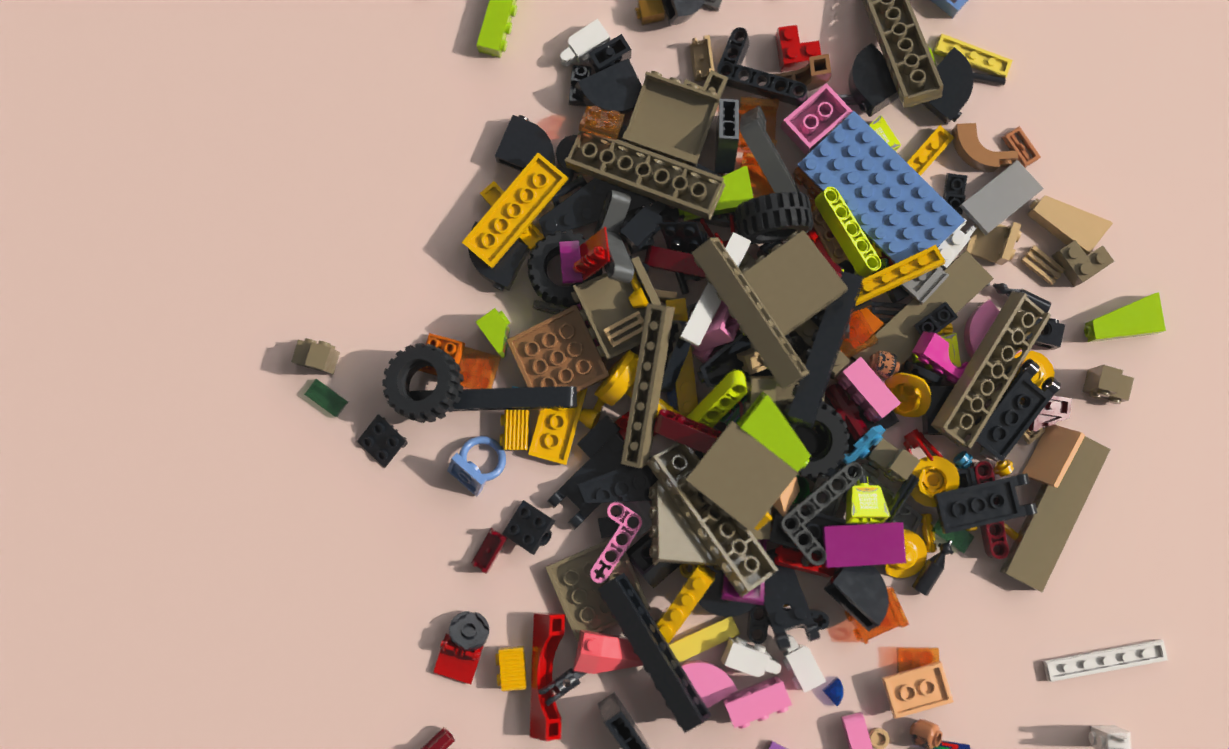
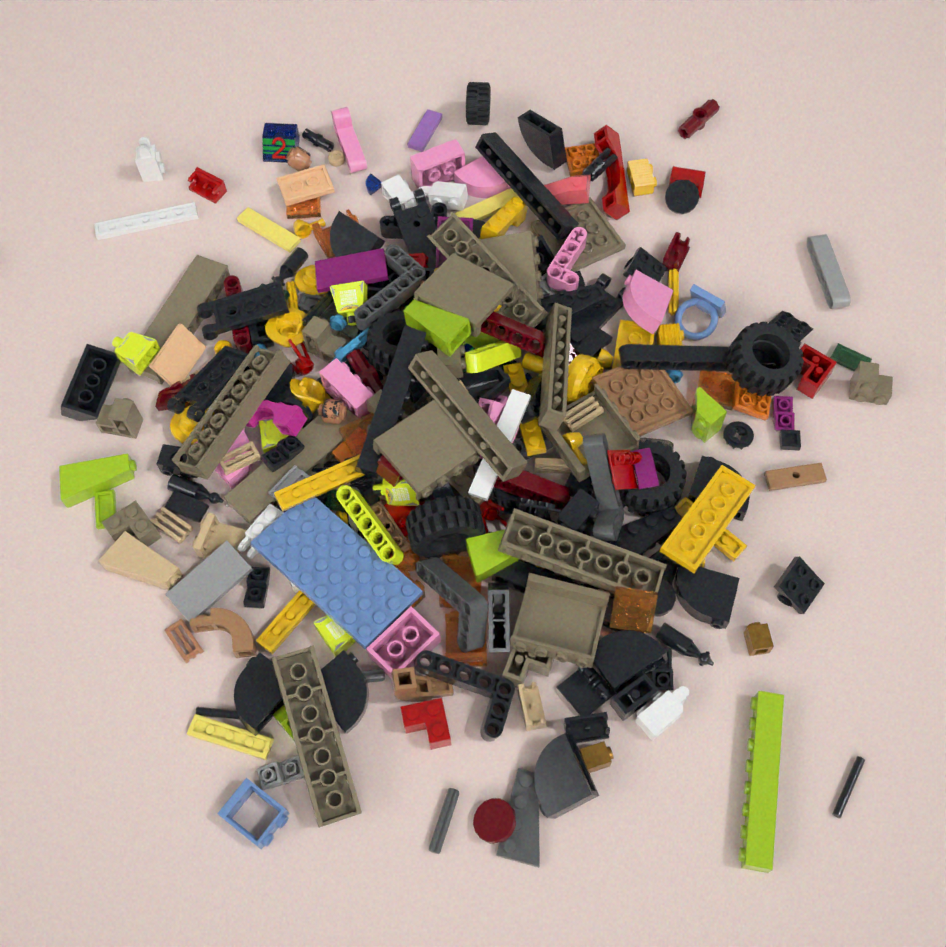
camera: 175 degrees right, 20 degrees down
(323, 511) = (828, 271): none -> light grey beam
(367, 377) = (815, 371): none -> red brick
(404, 264) = (805, 475): none -> medium nougat tile
(412, 305) = (790, 440): none -> black plate
(412, 331) = (783, 413): none -> magenta slope
(439, 148) = (798, 585): none -> black plate
(457, 310) = (743, 430): none -> black gear
(487, 102) = (758, 639): none -> pearl gold brick
(500, 500) = (673, 283): none -> yellow axle
(535, 479) = (646, 300): none -> bright pink brick
(558, 104) = (682, 644): none -> black wheel
(579, 708) = (580, 157): none -> orange tile
(652, 61) = (586, 690): none -> black hinge
(655, 38) = (588, 727): none -> black hinge
(878, 480) = (337, 322): none -> dark azure plate
(918, 628) = (303, 229): none -> yellow bar
(932, 19) = (280, 773): none -> light grey slope
(958, 633) = (268, 229): none -> light yellow tile
(964, 328) = (241, 460): none -> tan tile
(1028, 279) = (186, 506): none -> black slope
(1036, 705) = (207, 185): none -> red hinge
(1101, 457) = (136, 351): none -> neon yellow torso
(1110, 289) = (104, 506): none -> lime tile
(1144, 429) = (90, 384): none -> black slope

